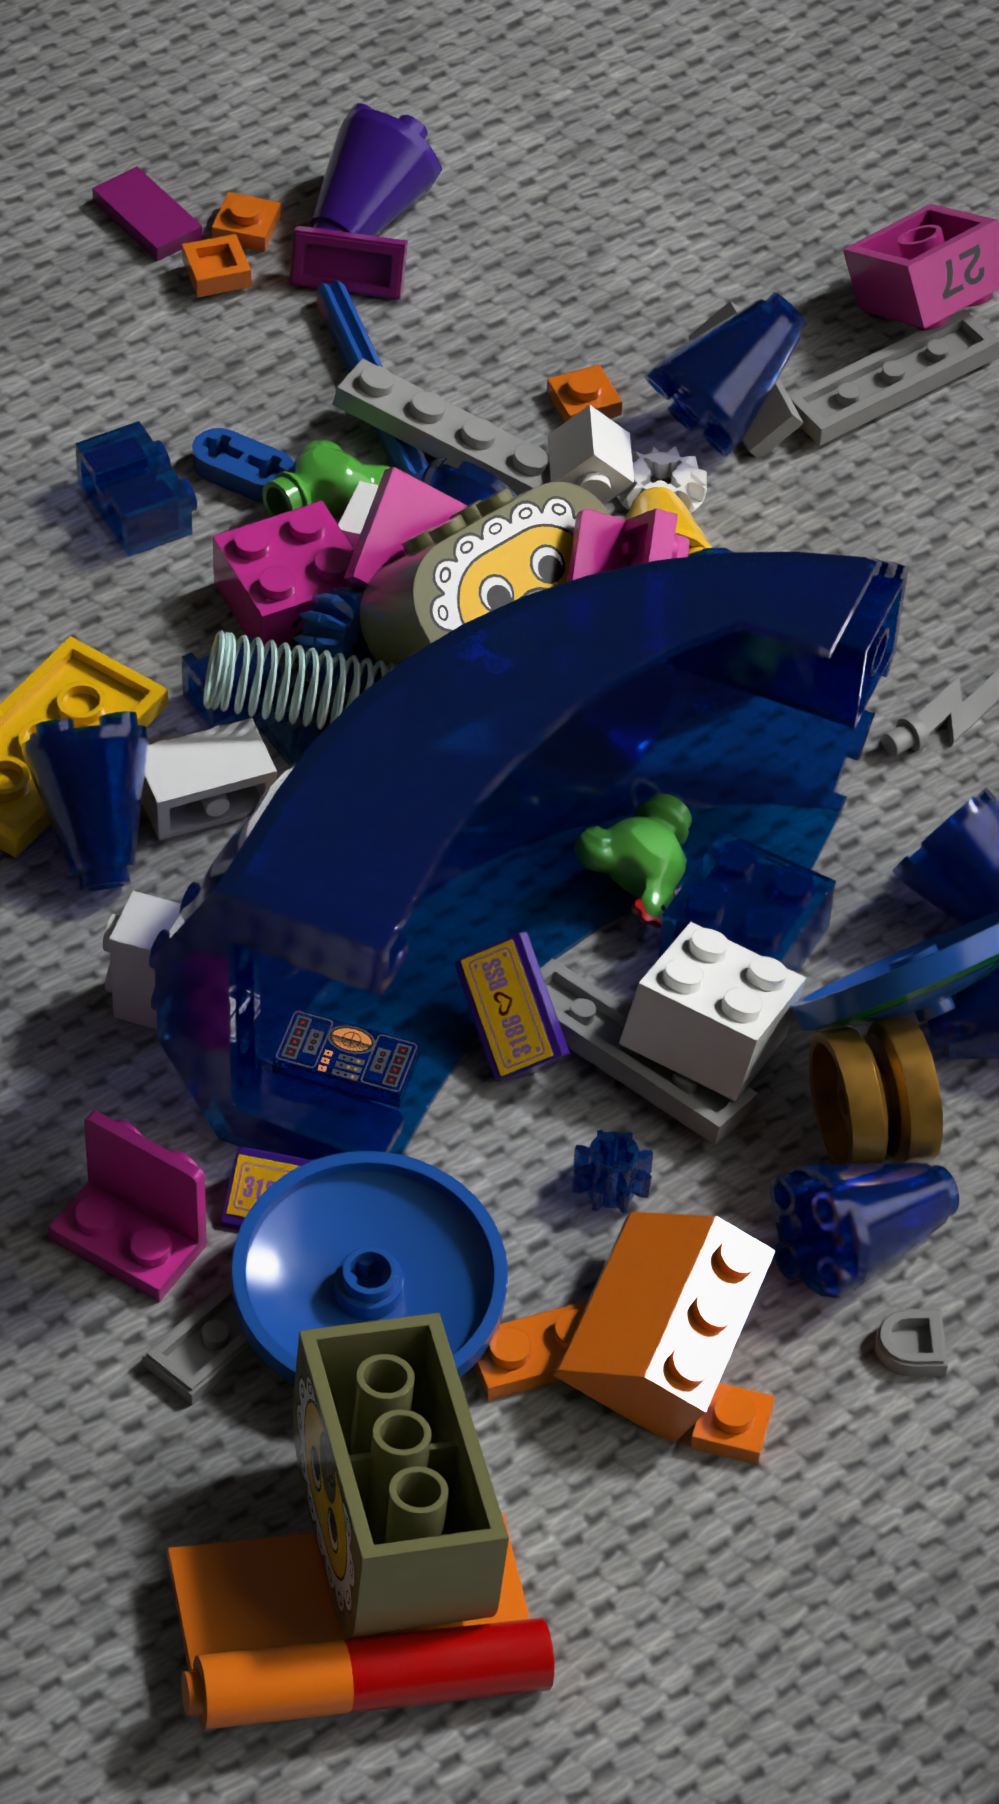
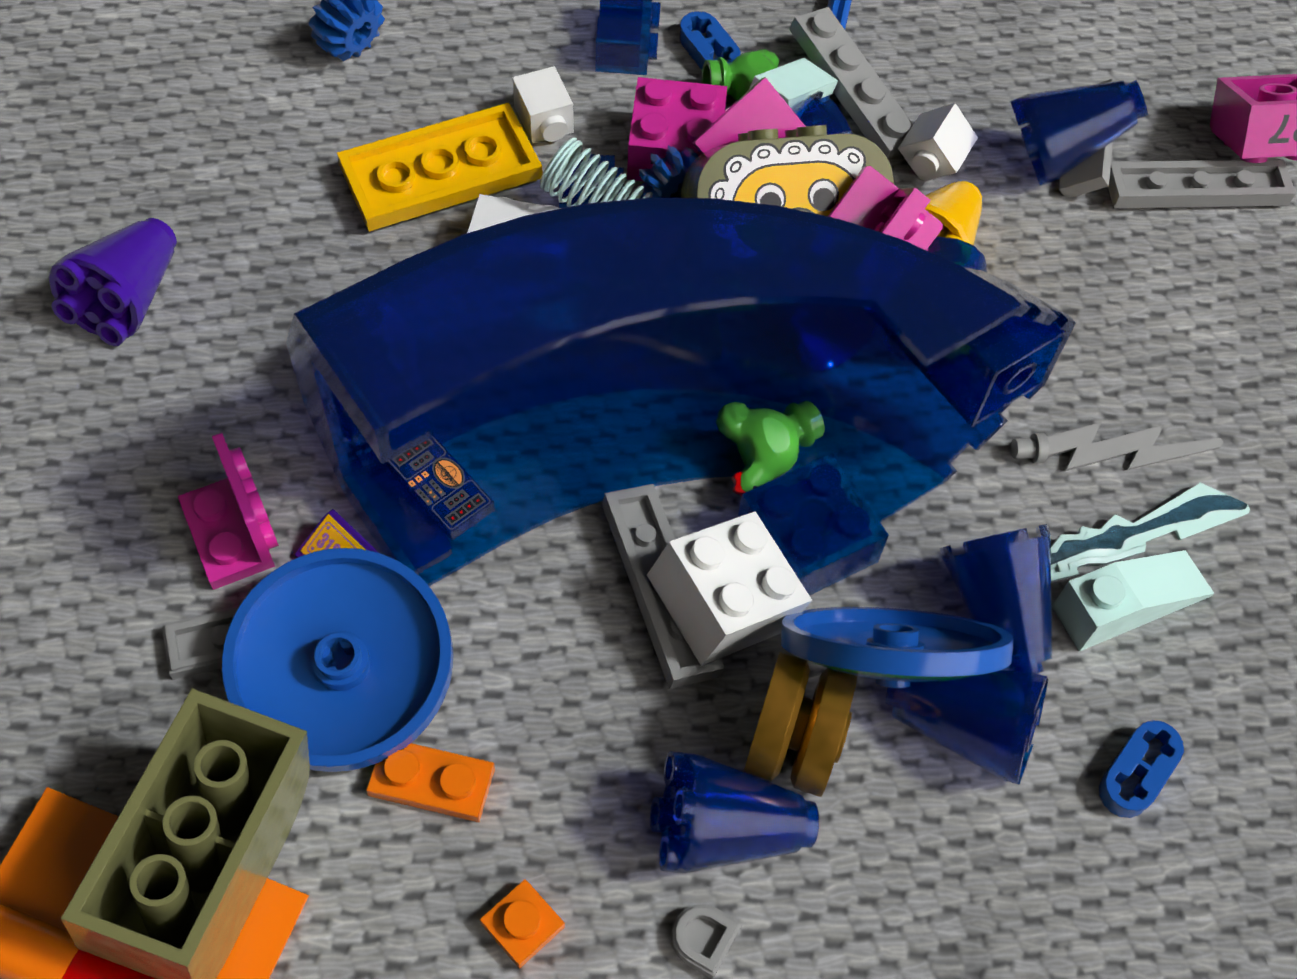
camera: 30 degrees right, 10 degrees up
(92, 793) = (427, 201): clear blue cone -> none
(113, 619) = (543, 105): none -> white brick
(390, 450) = (798, 81): none -> light aqua tile
(511, 1008) = (589, 506): slope -> none
(581, 388) = (972, 99): orange plate -> none
(612, 1170) = (571, 681): clear blue gear -> none
(665, 1318) = (520, 813): orange slope -> none
(686, 479) = (1001, 185): white gear -> none

